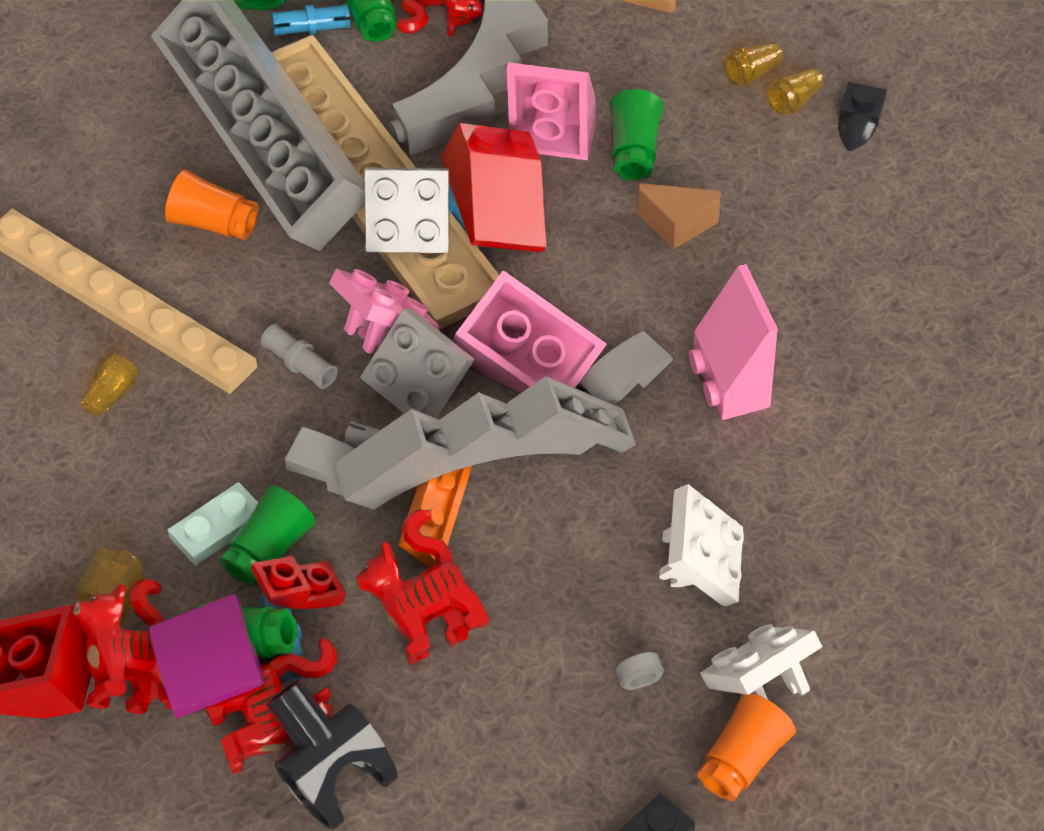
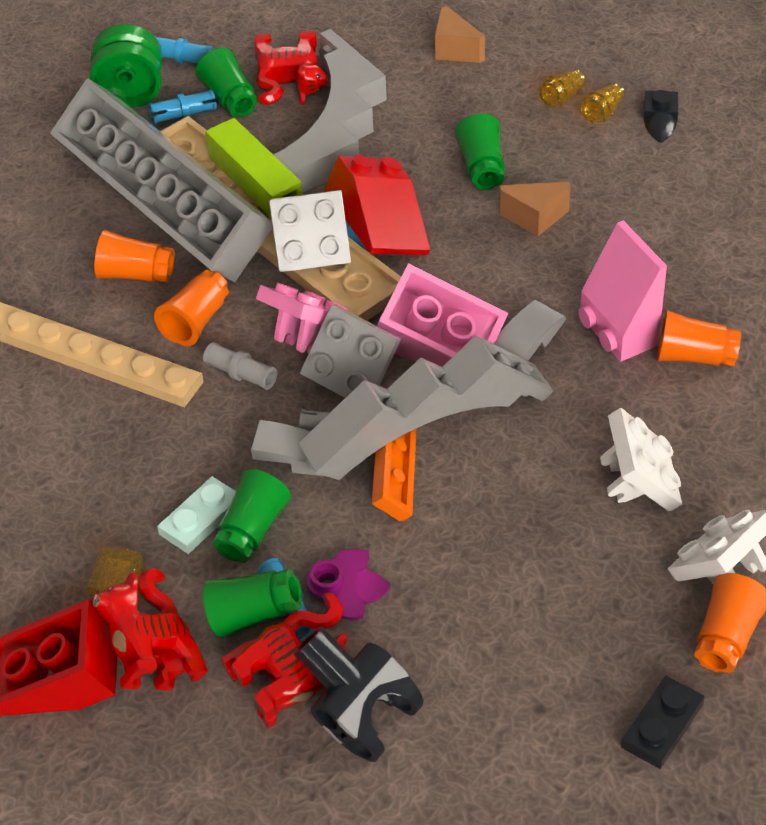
camera: 10 degrees left, 5 degrees down
(109, 383) = (75, 413): clear yellow cone -> none
(206, 656) = (225, 623): magenta slope -> none
(262, 278) = (191, 309): none -> orange plant
(299, 585) = (289, 551): red slope -> none
(359, 629) = (351, 582): none -> magenta plate
(365, 114) = (250, 164): none -> lime brick
(428, 596) = (413, 540): red animal -> none
(553, 107) = (411, 134): bright pink slope -> none
(639, 671) = (615, 574): light grey tile -> none
(809, 412) = (697, 341): none -> orange plant

